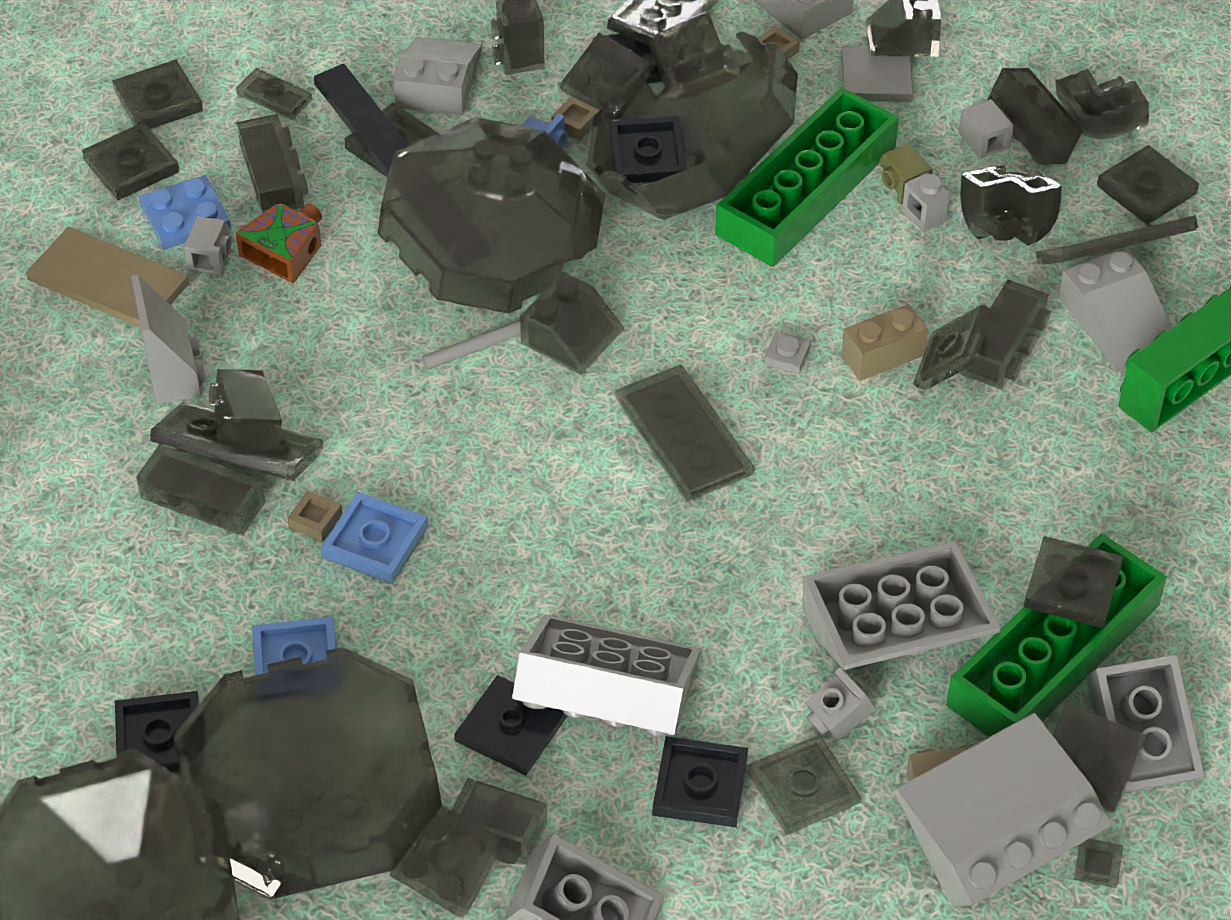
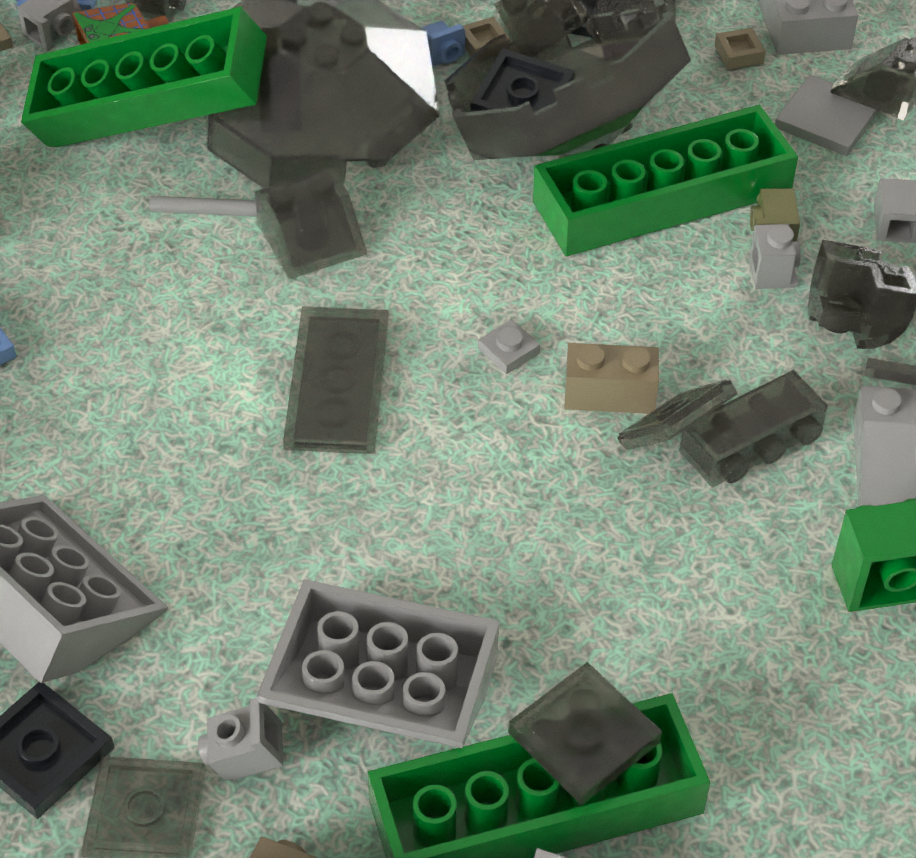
camera: 30 degrees right, 0 degrees up
(370, 262) = (145, 78): none -> green brick

